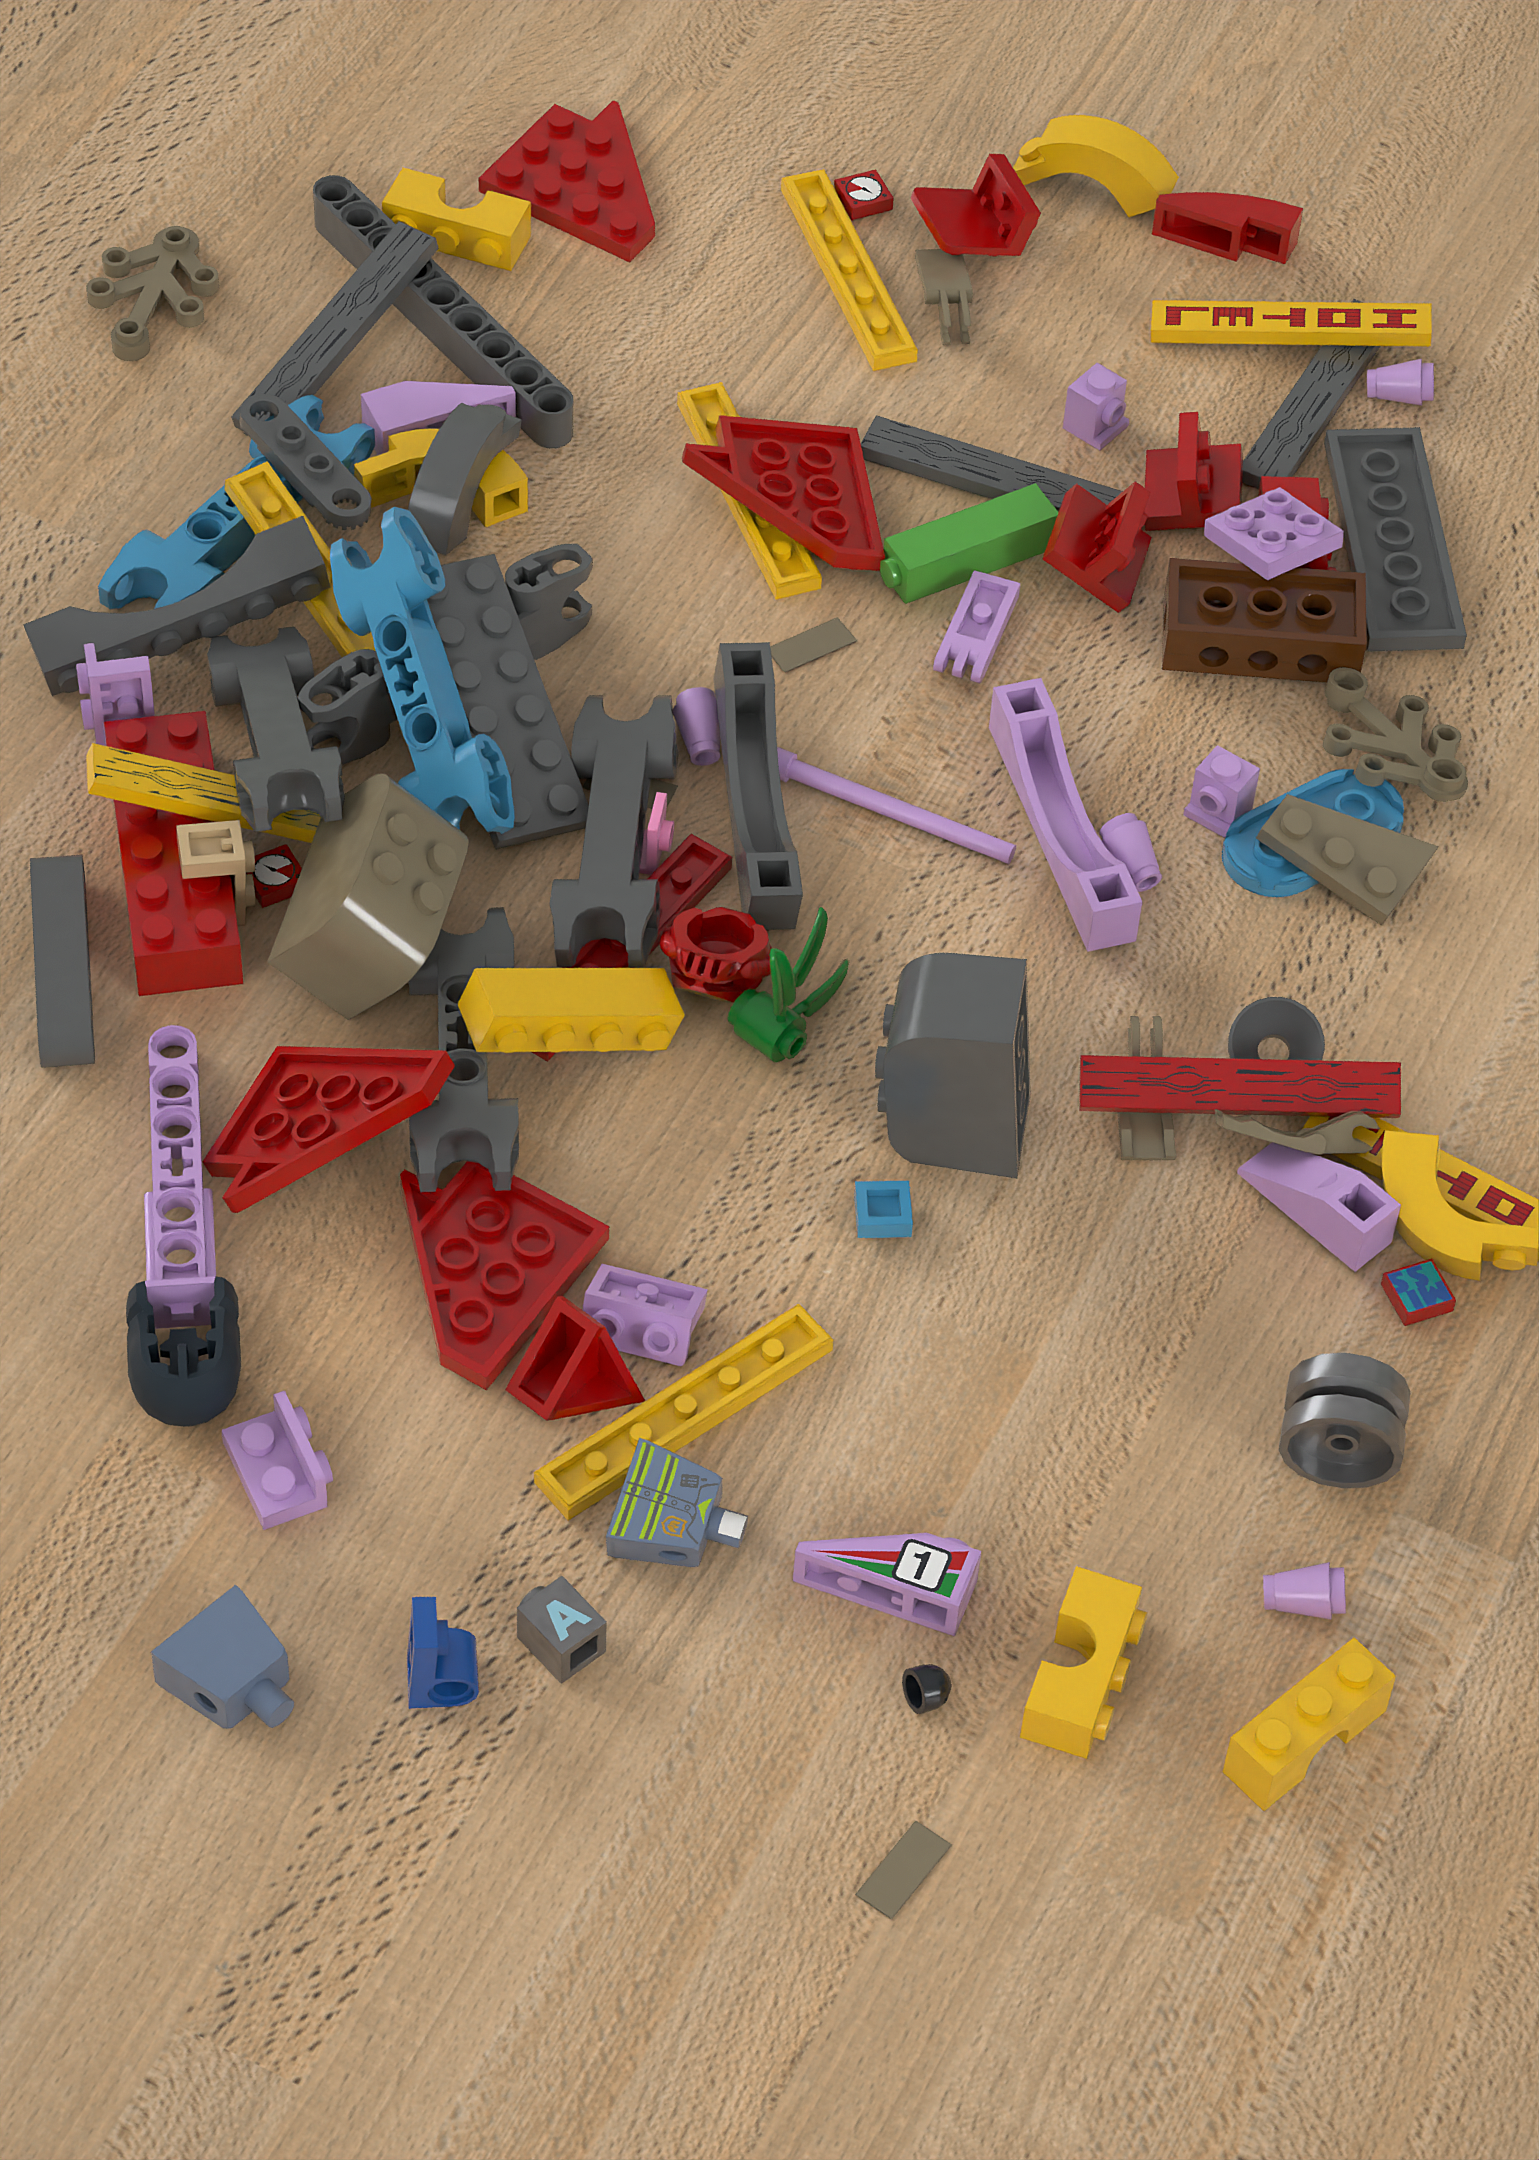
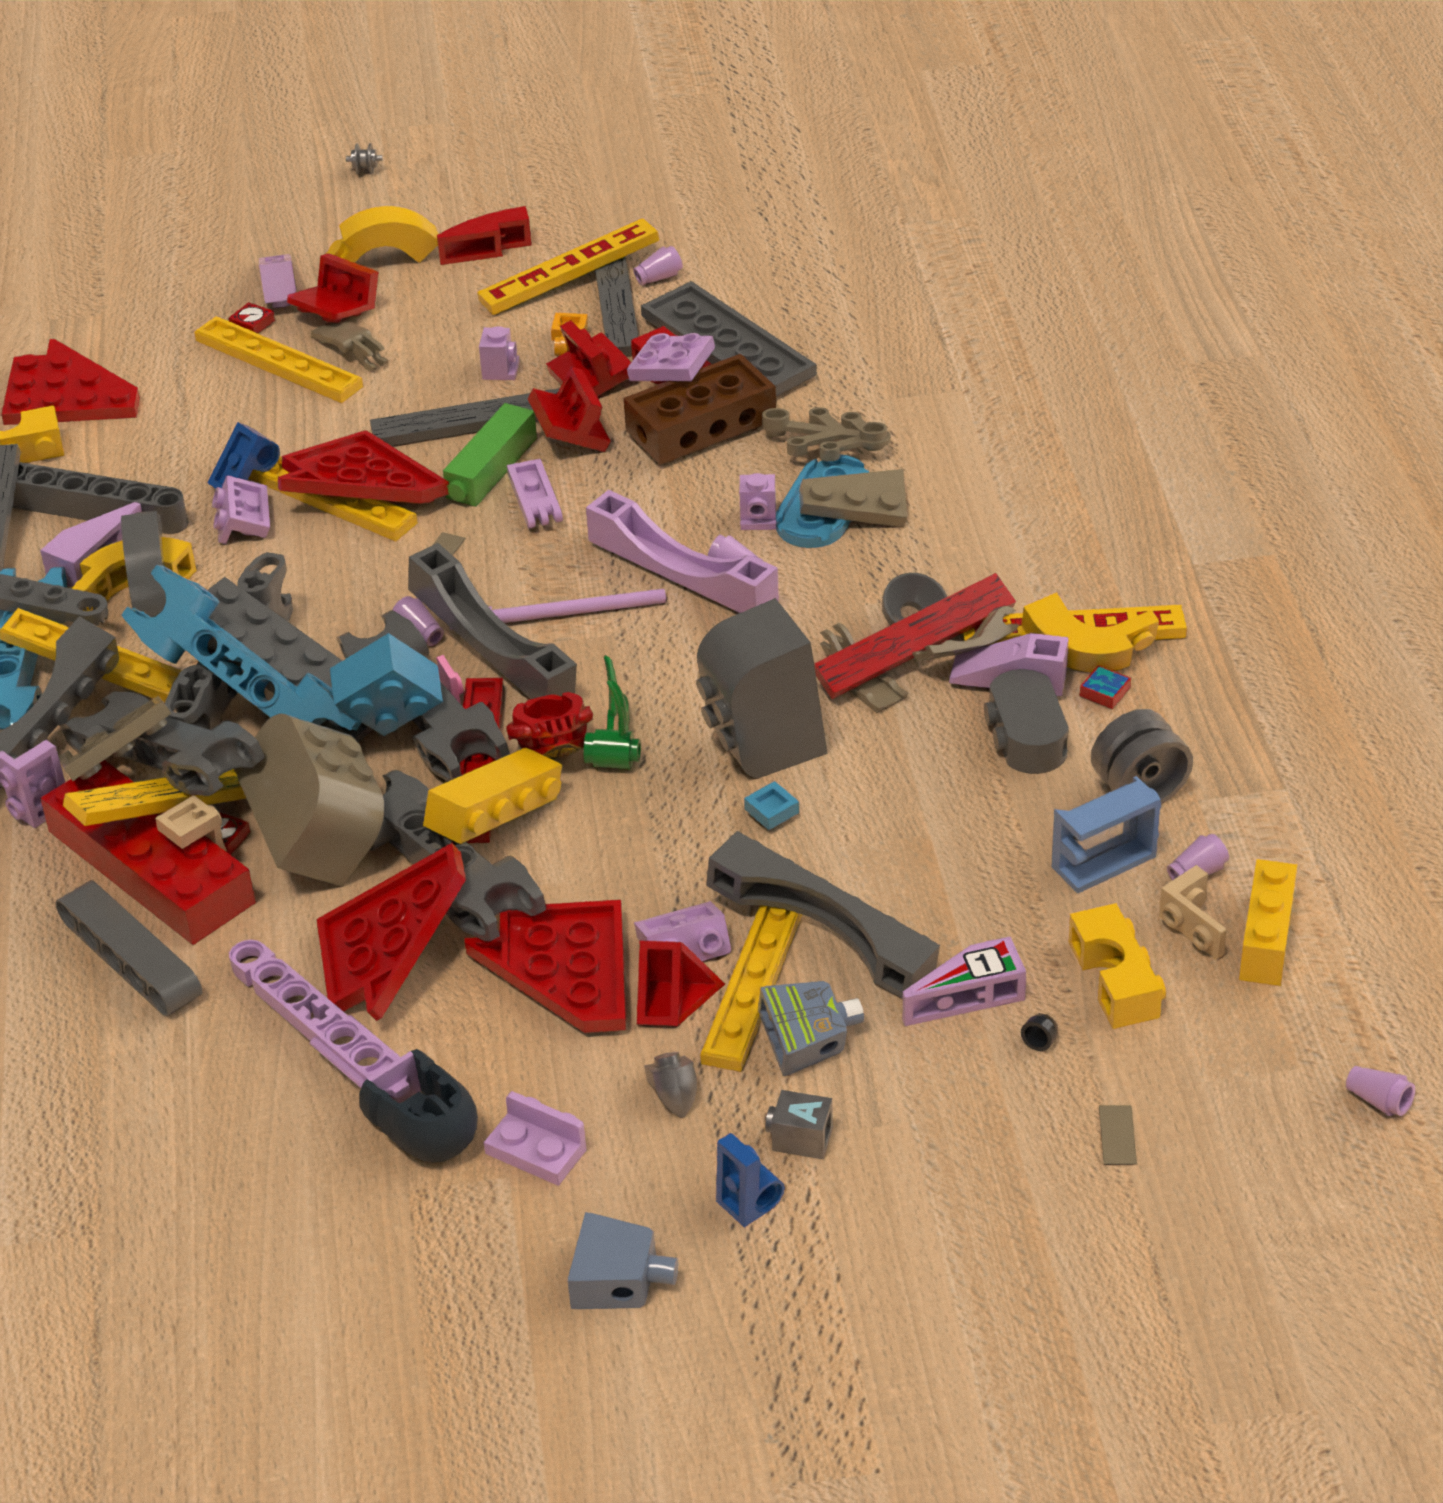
camera: 30 degrees left, 10 degrees down
(170, 704) = (98, 747): none -> dark tan wing
(474, 1484) = (673, 1081): none -> flat silver plate
(555, 800) = (386, 684): none -> dark azure brick
(634, 460) = (241, 508): none -> lavender bracket
(688, 385) = (244, 452): none -> blue plate
(767, 1291) = (758, 876): none -> dark grey arch
(934, 150) = (277, 279): none -> lavender slope
(1180, 29) = (364, 158): none -> flat silver wheel
(1216, 1494) = (1106, 835): none -> medium blue window
(1218, 413) = (581, 322): none -> light orange plate
(1240, 1626) = (1181, 910): none -> tan bracket
(1244, 2020) = (1382, 1089): none -> lavender cone
(1273, 1282) = (1027, 721): none -> dark grey brick

